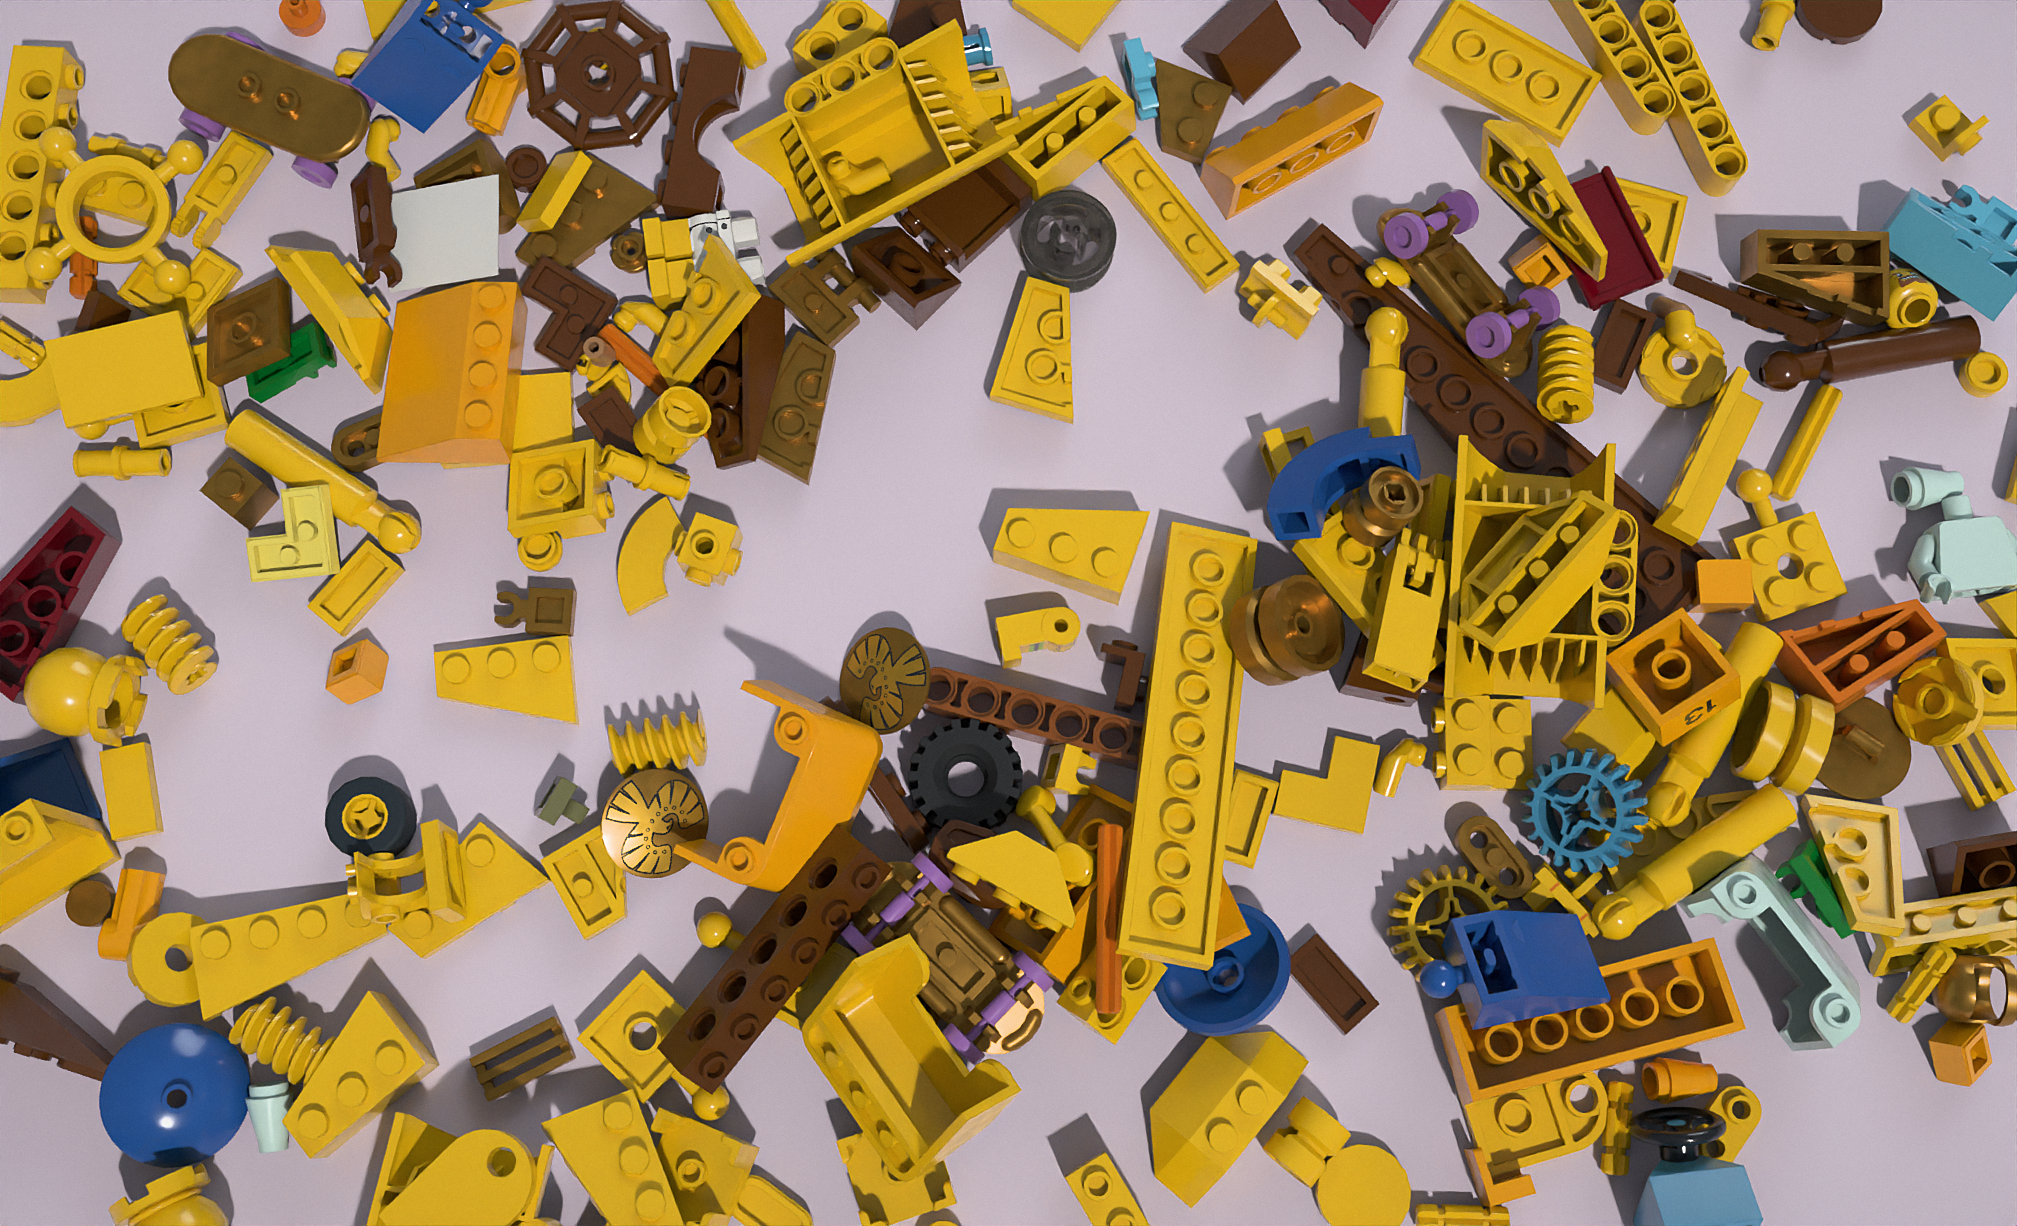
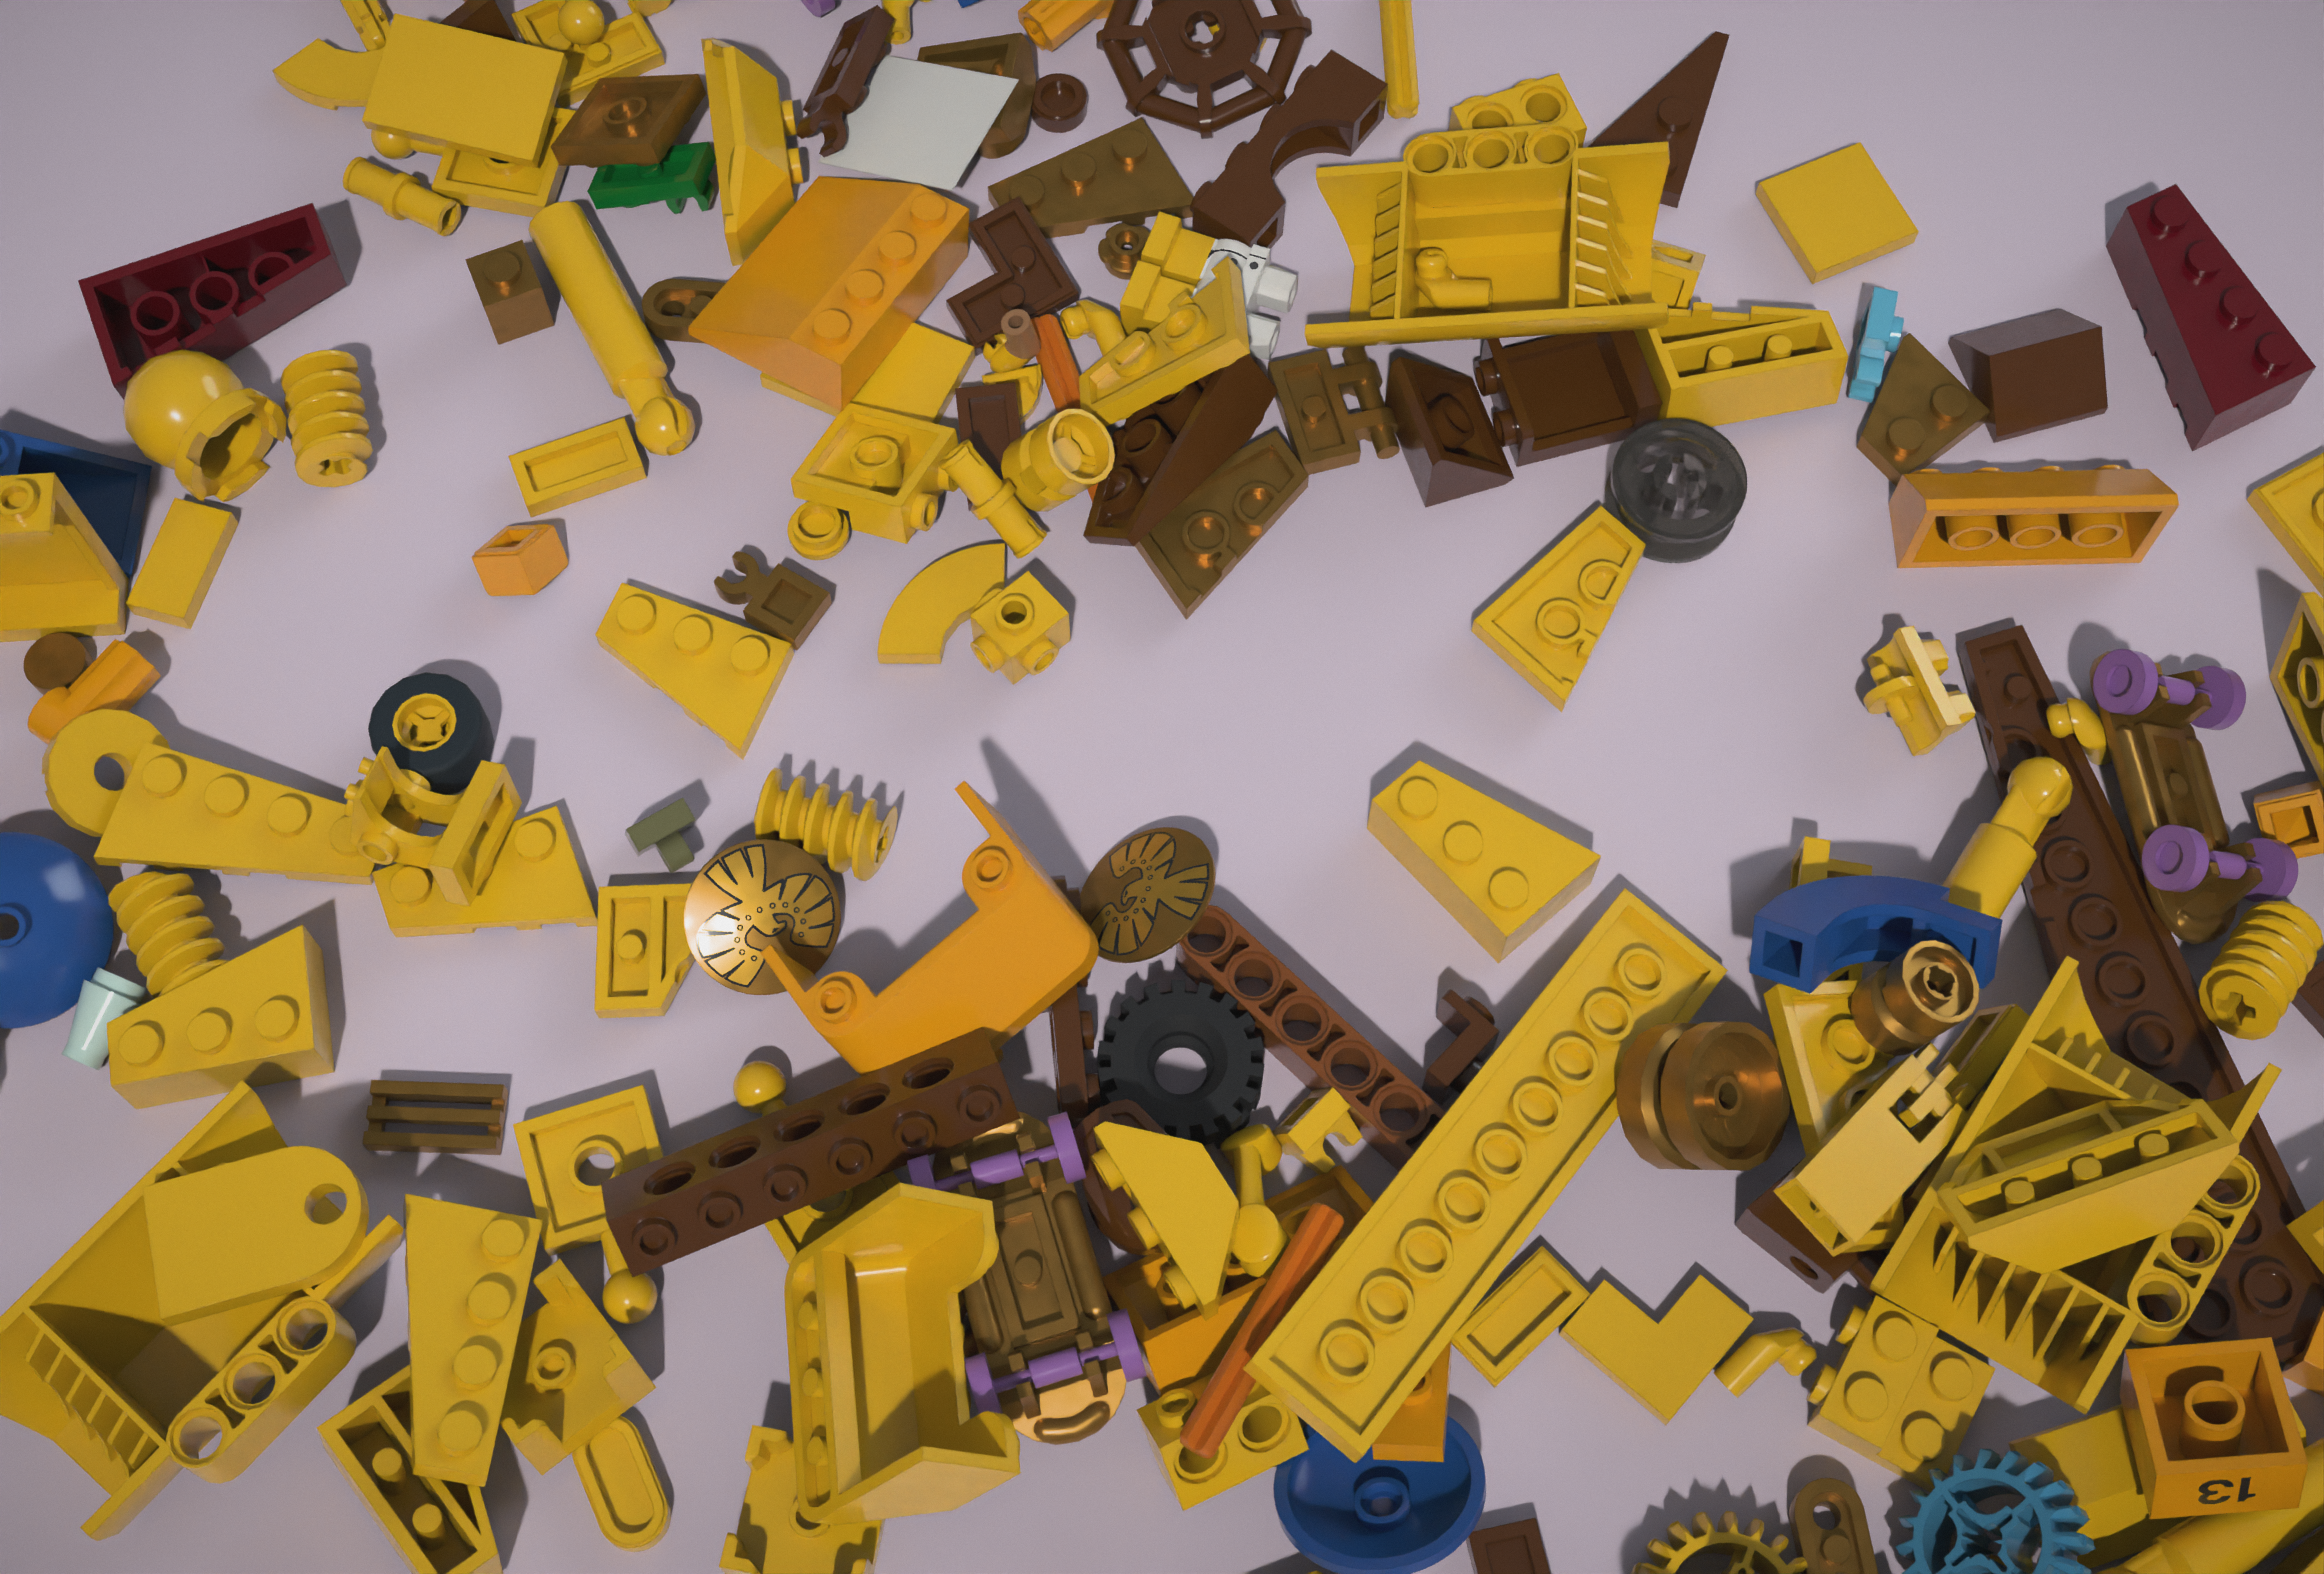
camera: 30 degrees right, 10 degrees down
(309, 540) = (552, 385): light yellow tile -> none
(554, 191) = (1074, 136): yellow tile -> none
(978, 48) = (1680, 215): dark azure bush -> none
(1034, 631) = (1372, 936): yellow leg -> none
(1170, 215) = (1826, 527): yellow tile -> none

